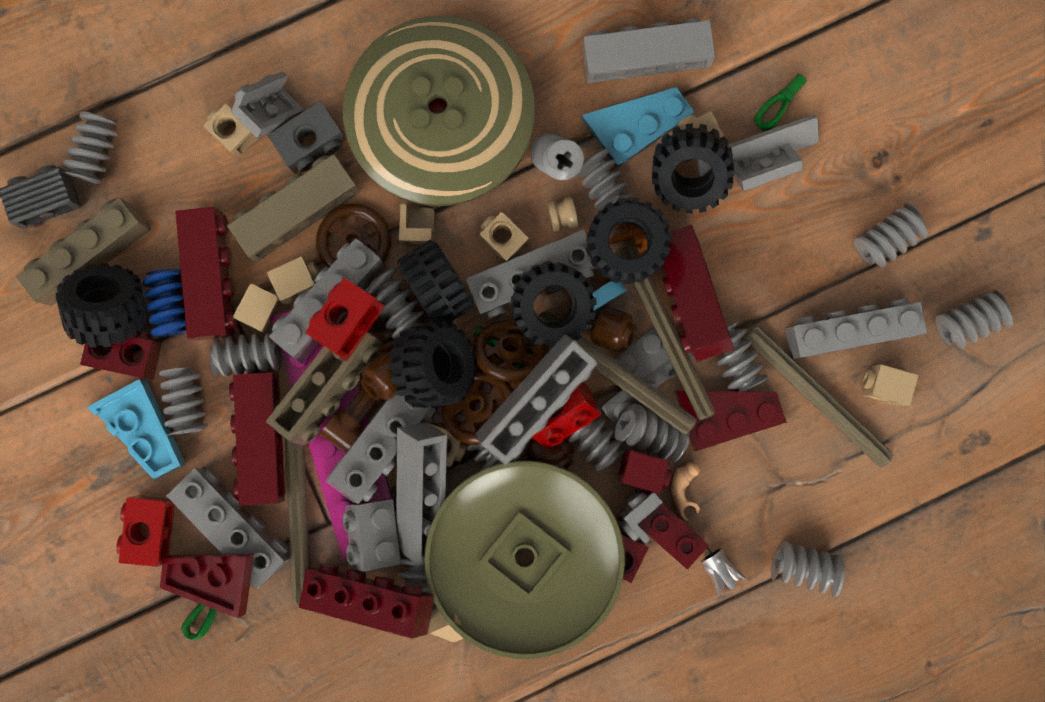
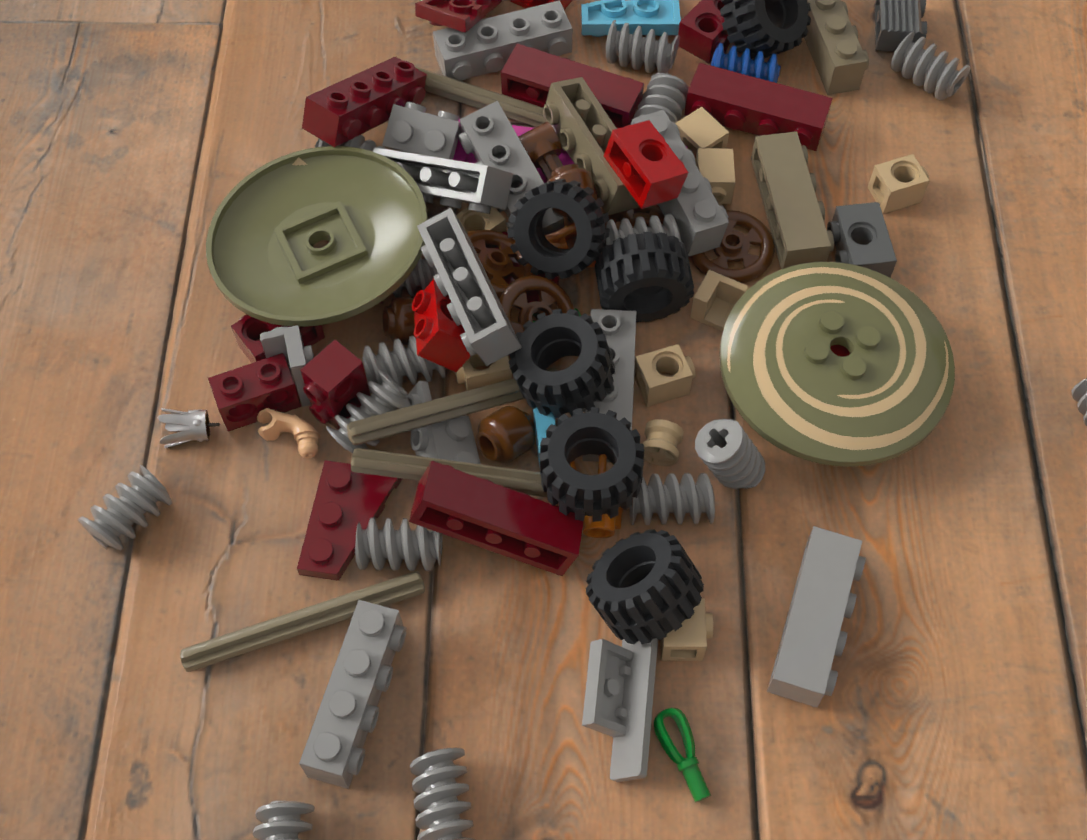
camera: 115 degrees right, 25 degrees down
(265, 105) = (912, 213): light grey bracket -> none
(637, 123) = (732, 571): medium azure wing -> none
(889, 385) = (267, 702): tan brick -> none

